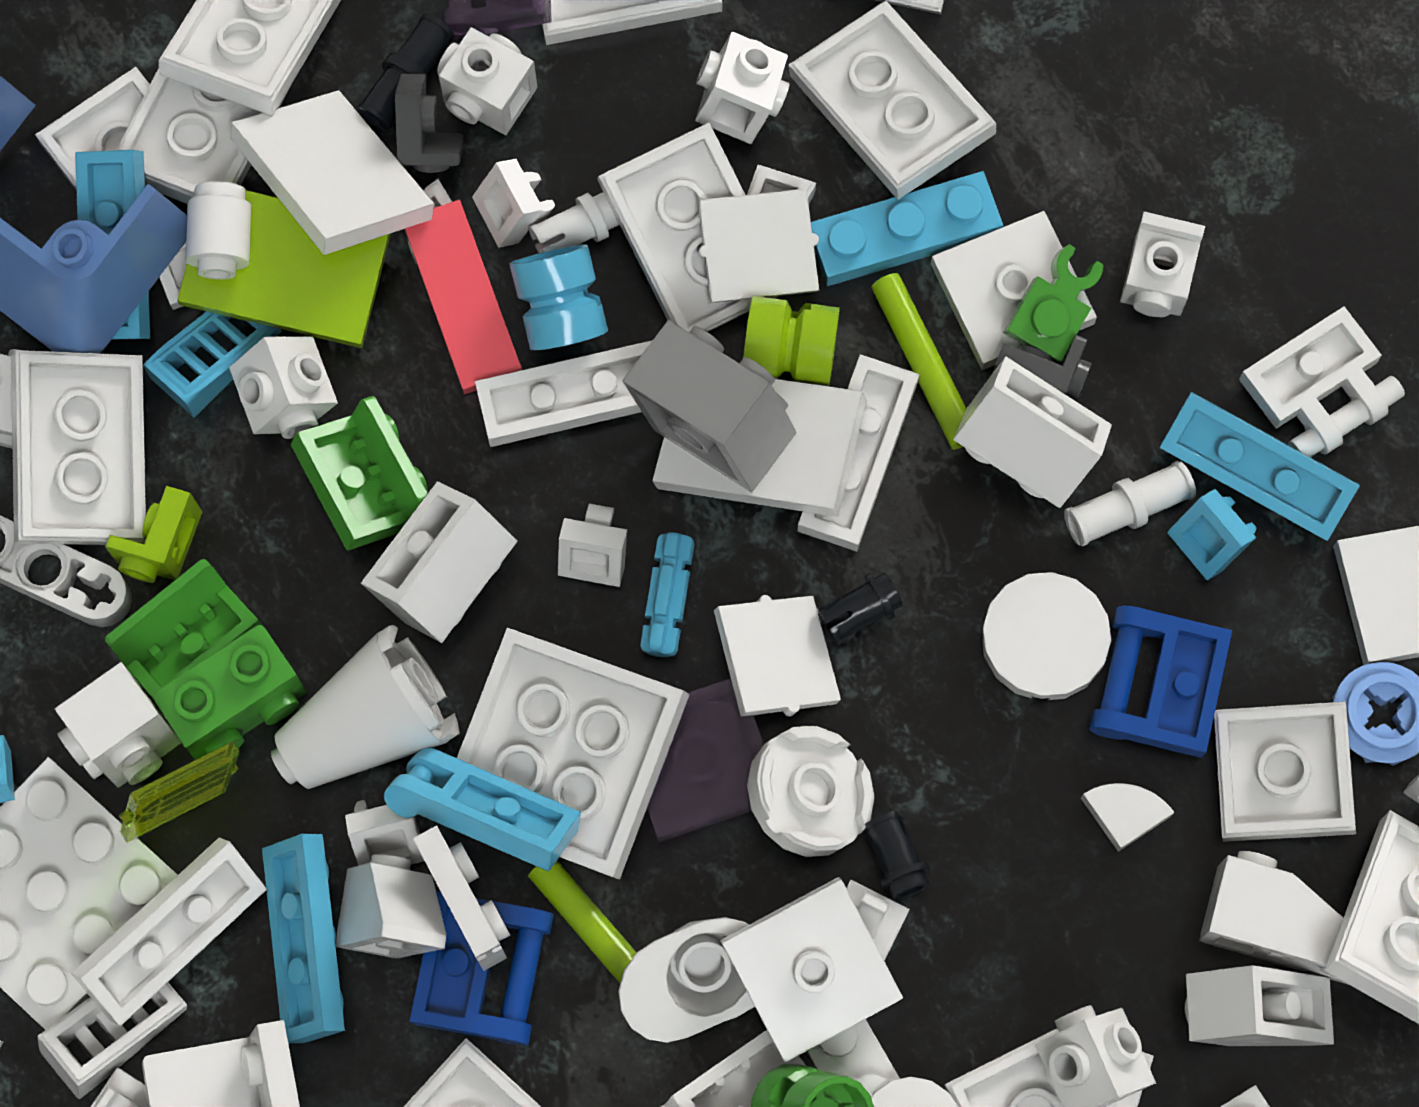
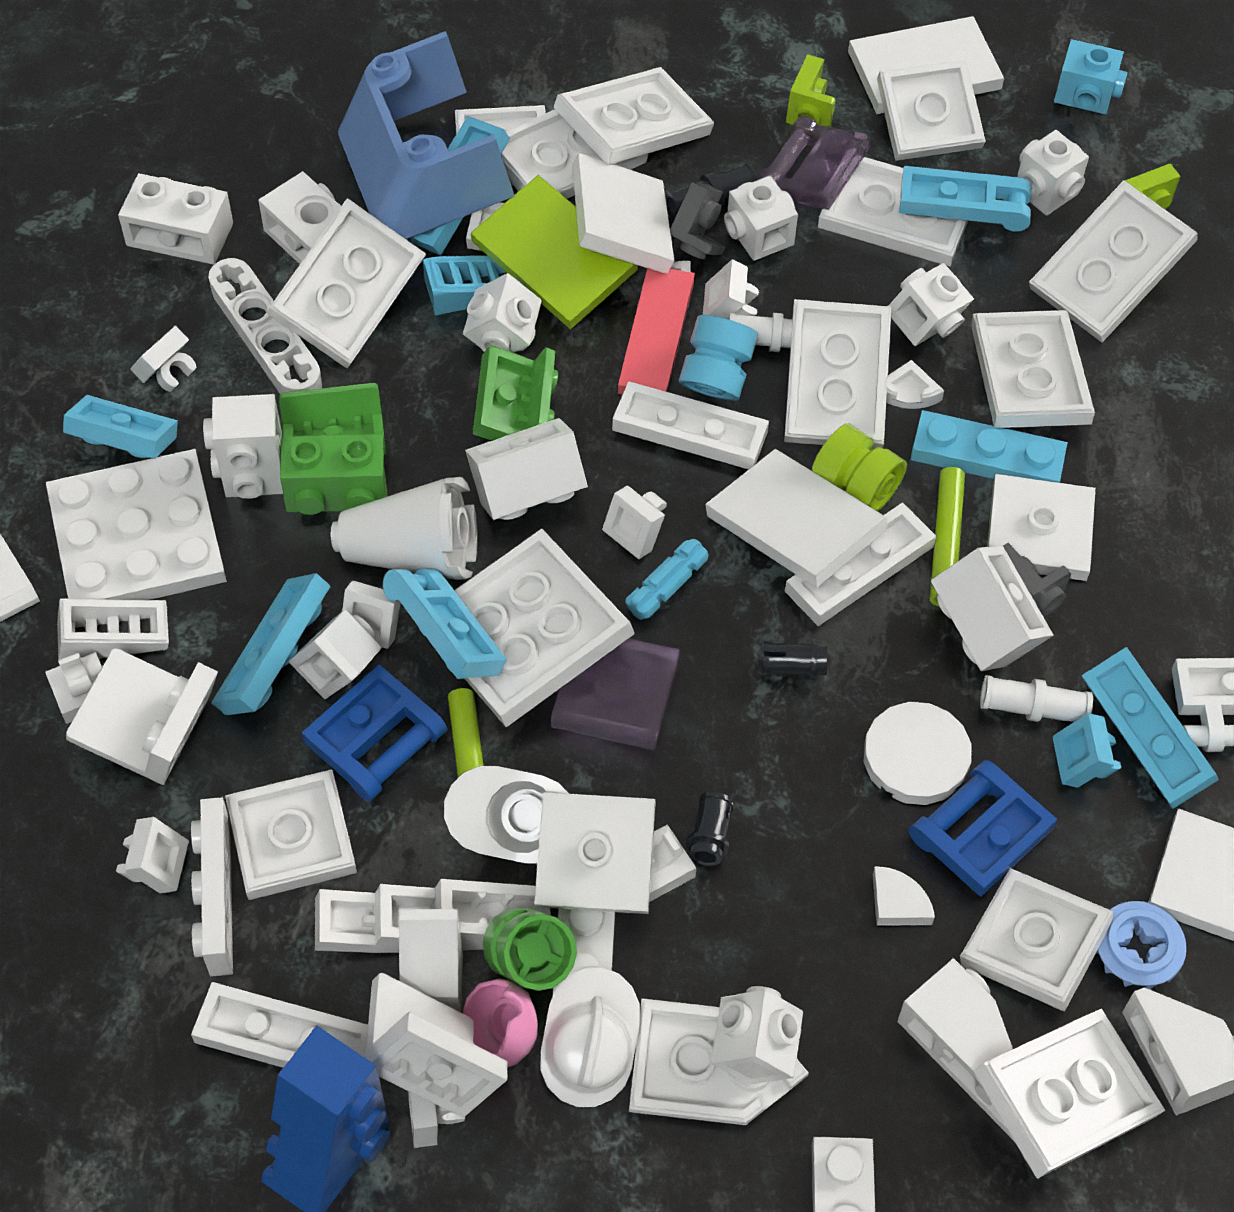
camera: 30 degrees right, 15 degrees down
(168, 536) = (368, 362): lime bracket -> none
(169, 931) = (189, 586): white plate -> none
(178, 791) = (256, 503): clear neon green piece -> none
(218, 230) = (523, 198): white brick -> none
(452, 873) = (390, 652): white plate -> none
(711, 403) = (773, 461): light grey brick -> none
(758, 245) = (876, 399): white piece -> none
(777, 655) = (715, 655): white piece -> none
(810, 791) = (677, 749): white tile -> none
(1049, 312) = (1061, 545): bright green plate -> none
(1165, 243) = (1160, 563): white brick -> none
(1258, 1007) = (911, 1084): white slope -> none

